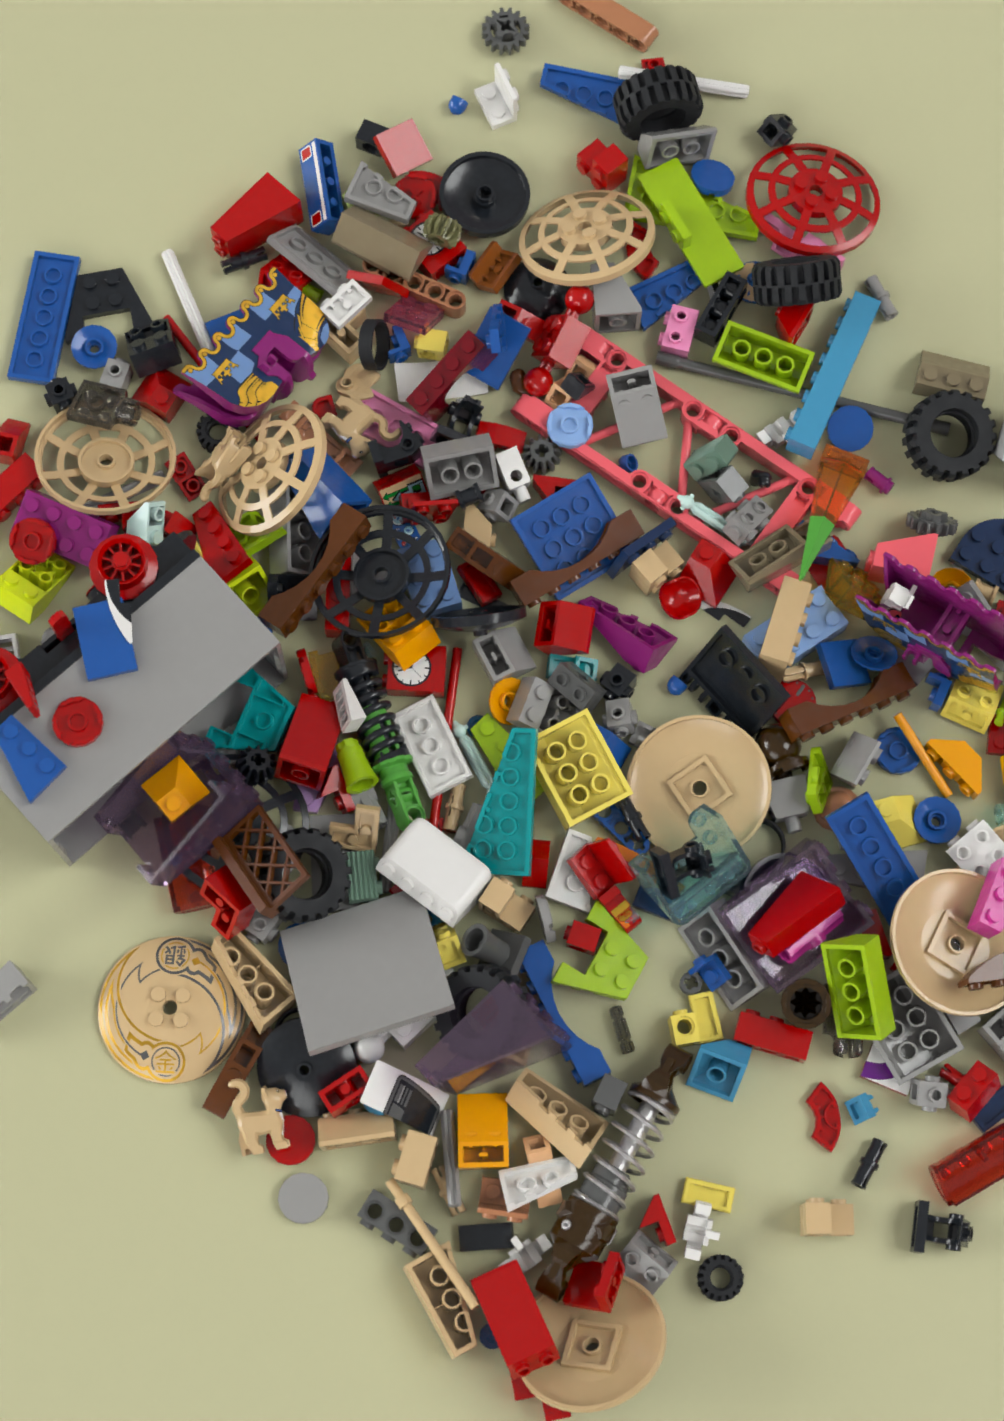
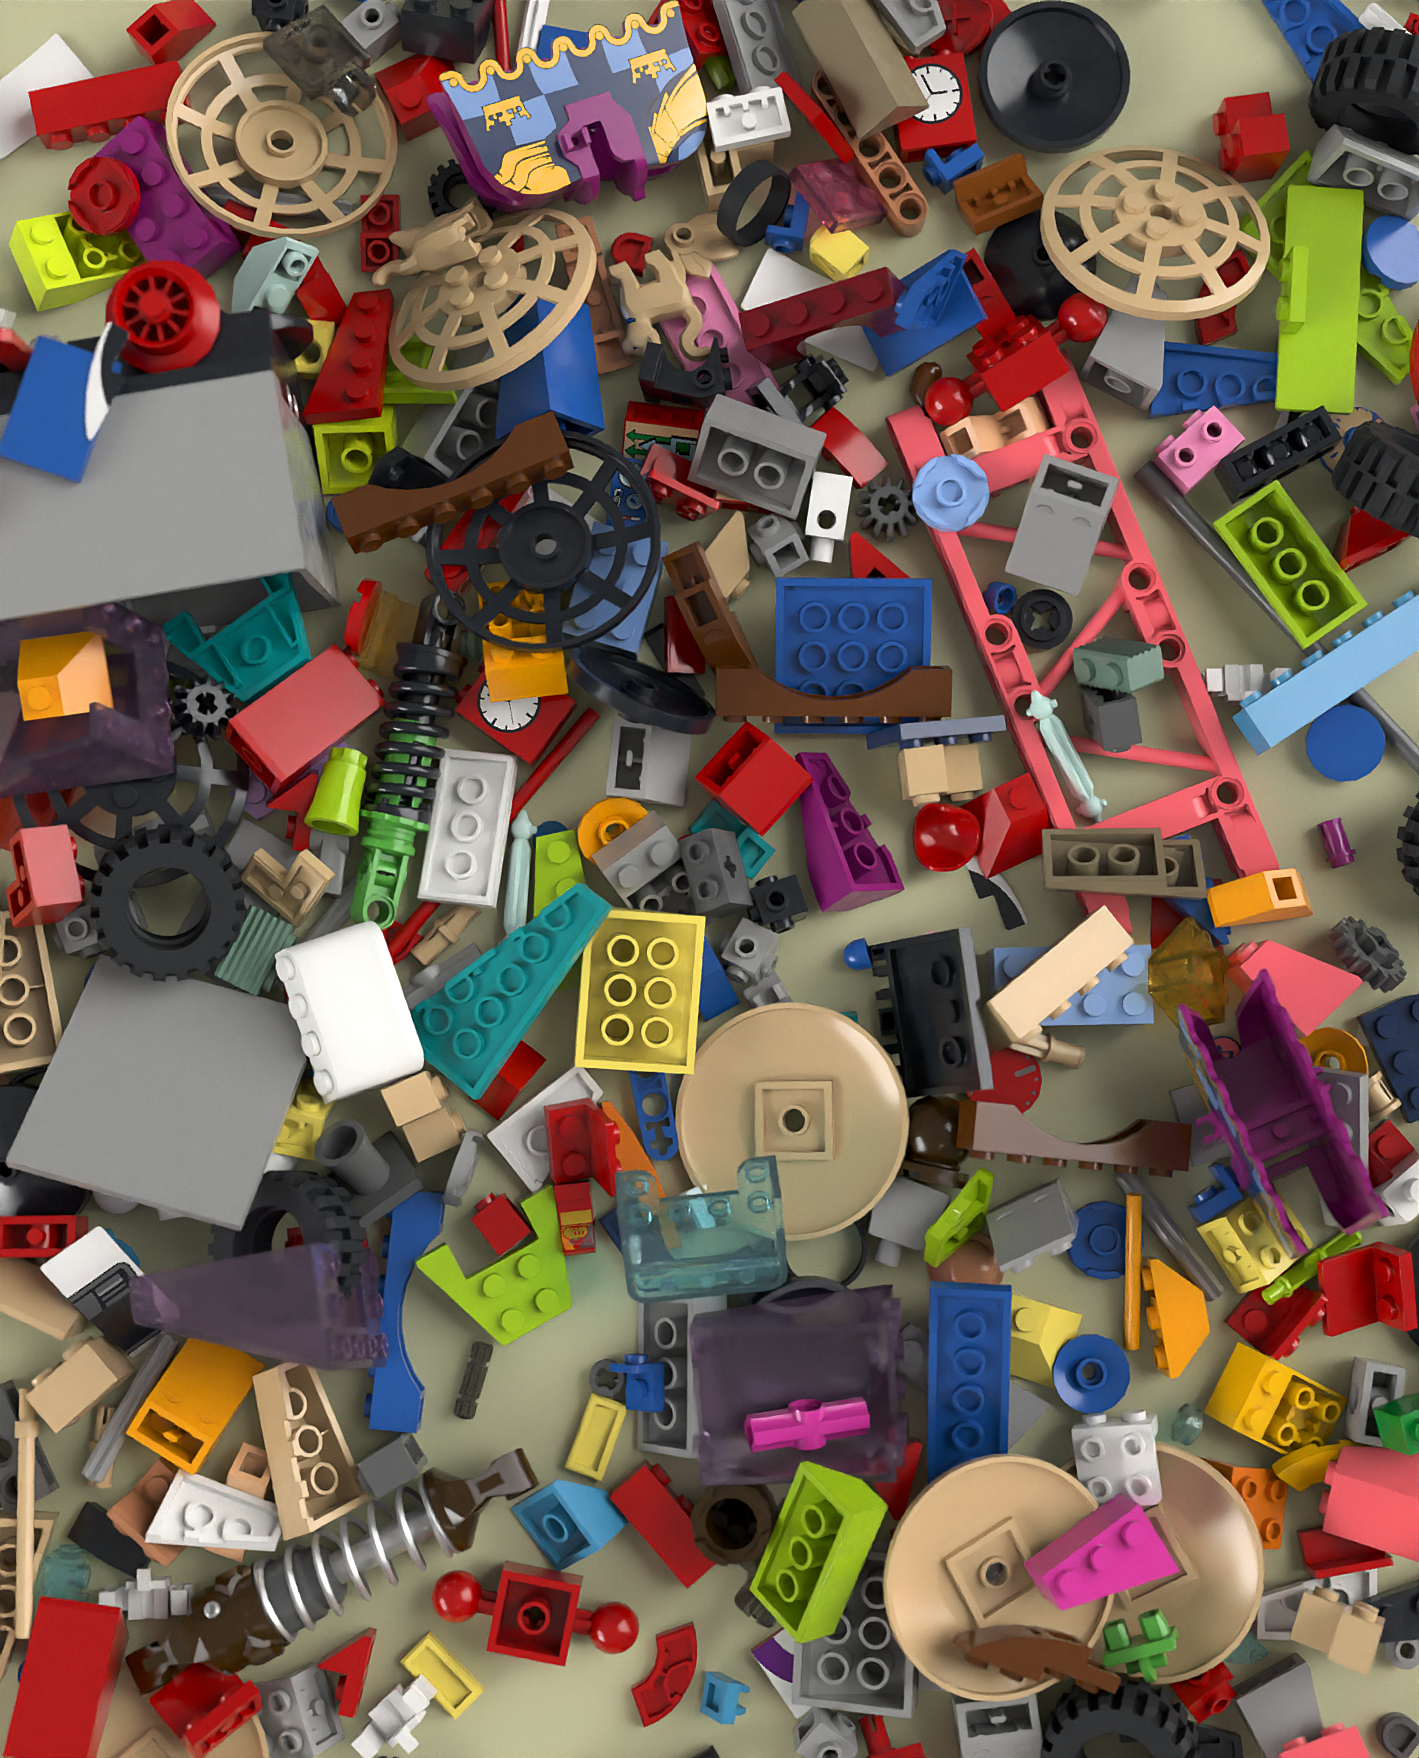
camera: 30 degrees right, 10 degrees up
(243, 870) = (80, 859): reddish brown fence -> none
(348, 707) = (379, 710): white slope -> none
(442, 230) = (954, 94): olive gear -> none
(469, 496) = (742, 508): black bush -> none
(471, 1268) = (66, 1574): none -> clear light blue brick
(577, 385) = (998, 441): black slope -> none
(633, 819) = (673, 1108): black pin -> none
(650, 454) = (1042, 601): none -> black gear
(678, 1038) = (550, 1452): light yellow brick -> none
(696, 865) = (710, 1233): black tile -> none
(743, 524) = (1117, 785): light grey brick -> none
(760, 478) = (1171, 737): black arm -> none
(779, 1108) = (514, 1633): none -> red brick
(795, 913) = (799, 1389): red slope -> none
(836, 482) = (1273, 809): clear orange plate -> none
(839, 666) = (1107, 1074): blue tile -> none
(860, 528) = (1259, 899): none -> light orange slope
(874, 653) = (1170, 1080): blue dish -> none
(898, 597) = (1242, 1040): white piece -> none
(930, 727) = (1172, 1237): none -> light grey axle

